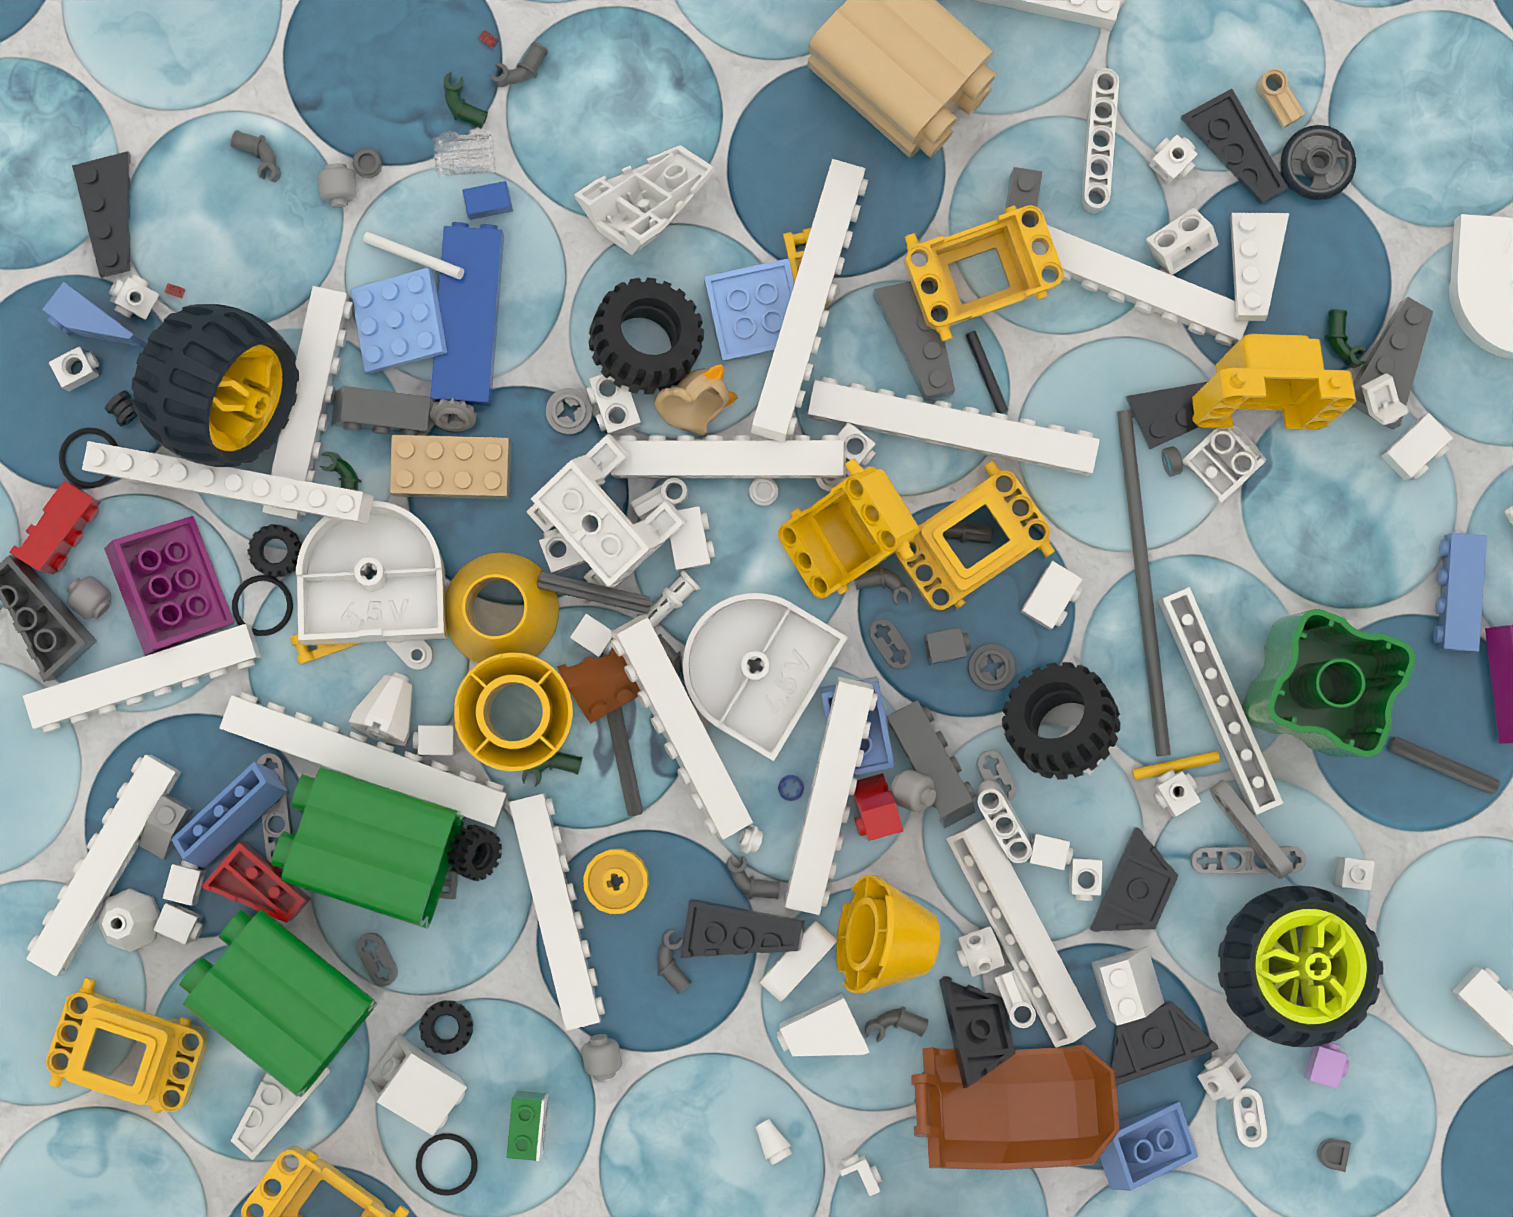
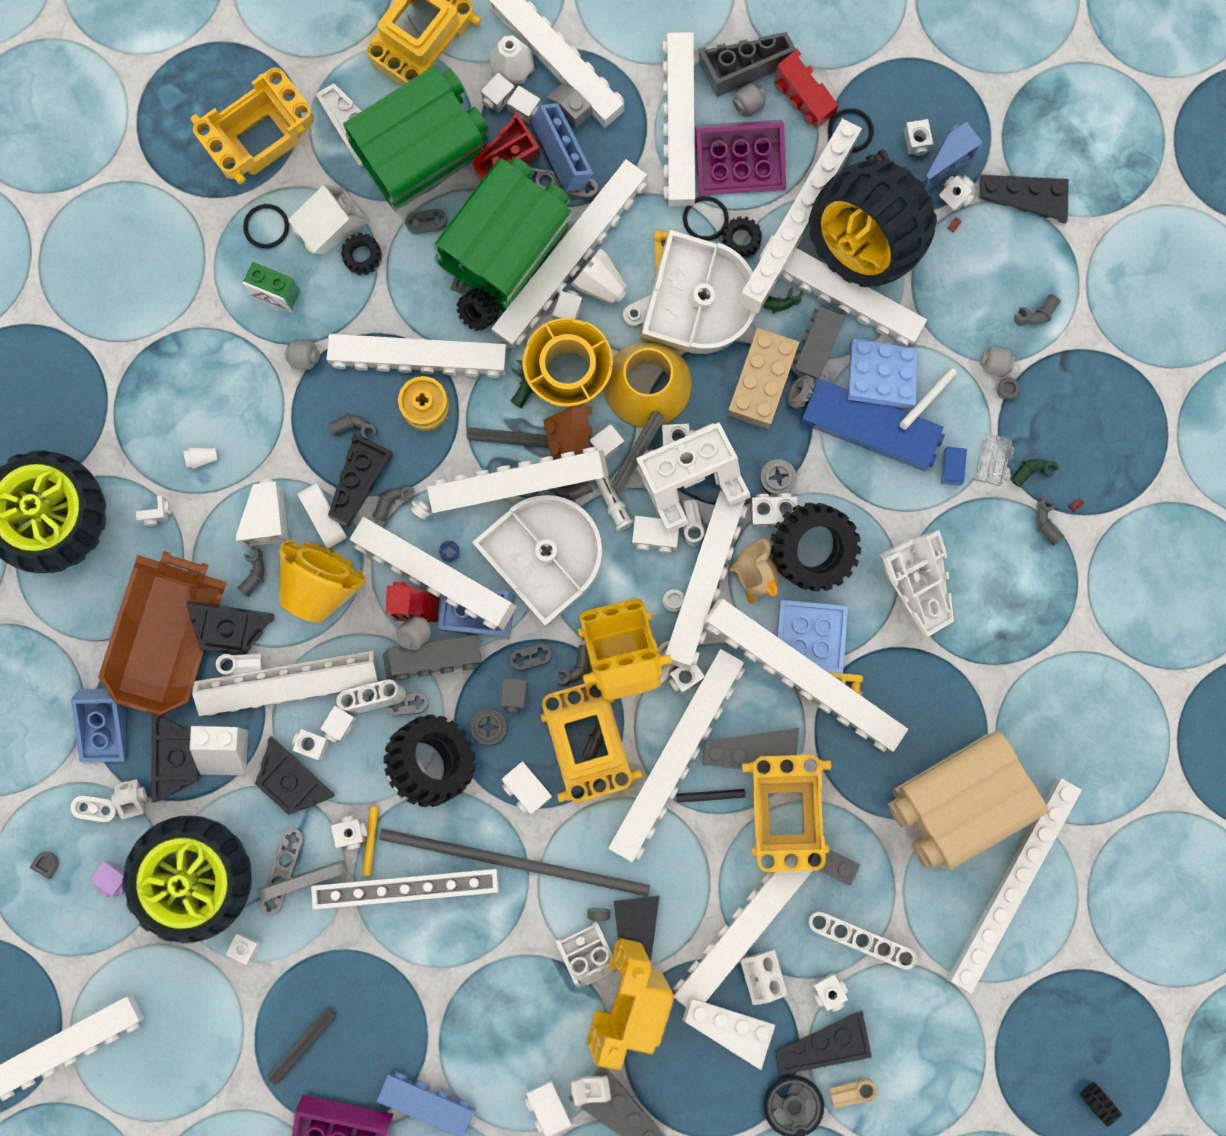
camera: 110 degrees right, 5 degrees down
(980, 952) = (282, 649): white brick -> none
(1329, 684) = (385, 968): green brick -> none
(1337, 338) = (651, 1075): dark green piece -> none

